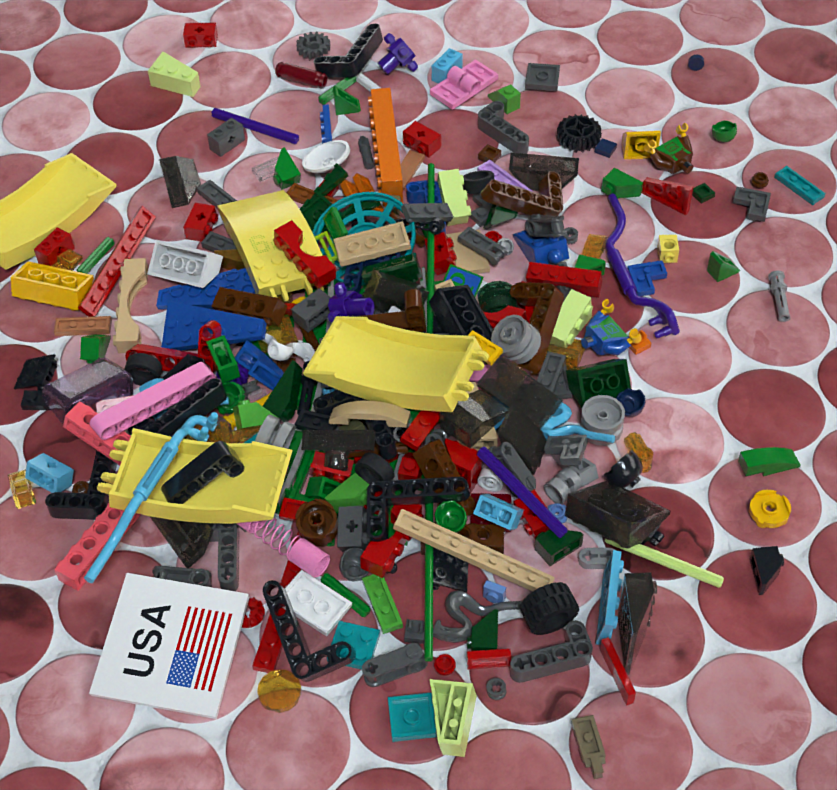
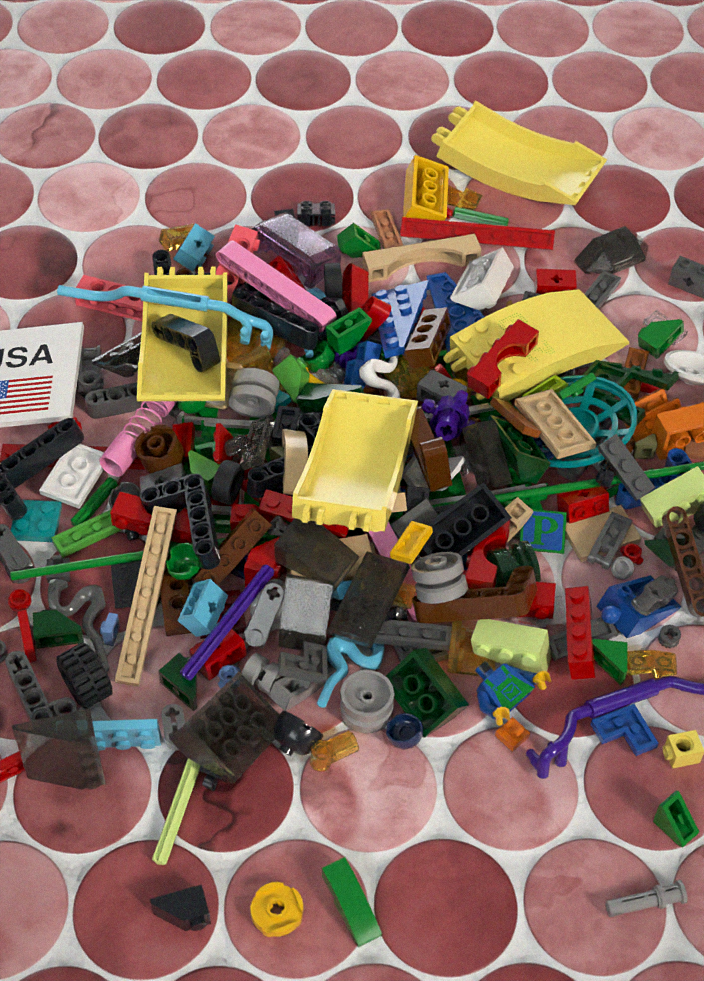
camera: 75 degrees right, 0 degrees up
(53, 246) = (477, 180): red brick -> none
(360, 266) = (517, 419): none -> dark orange tile

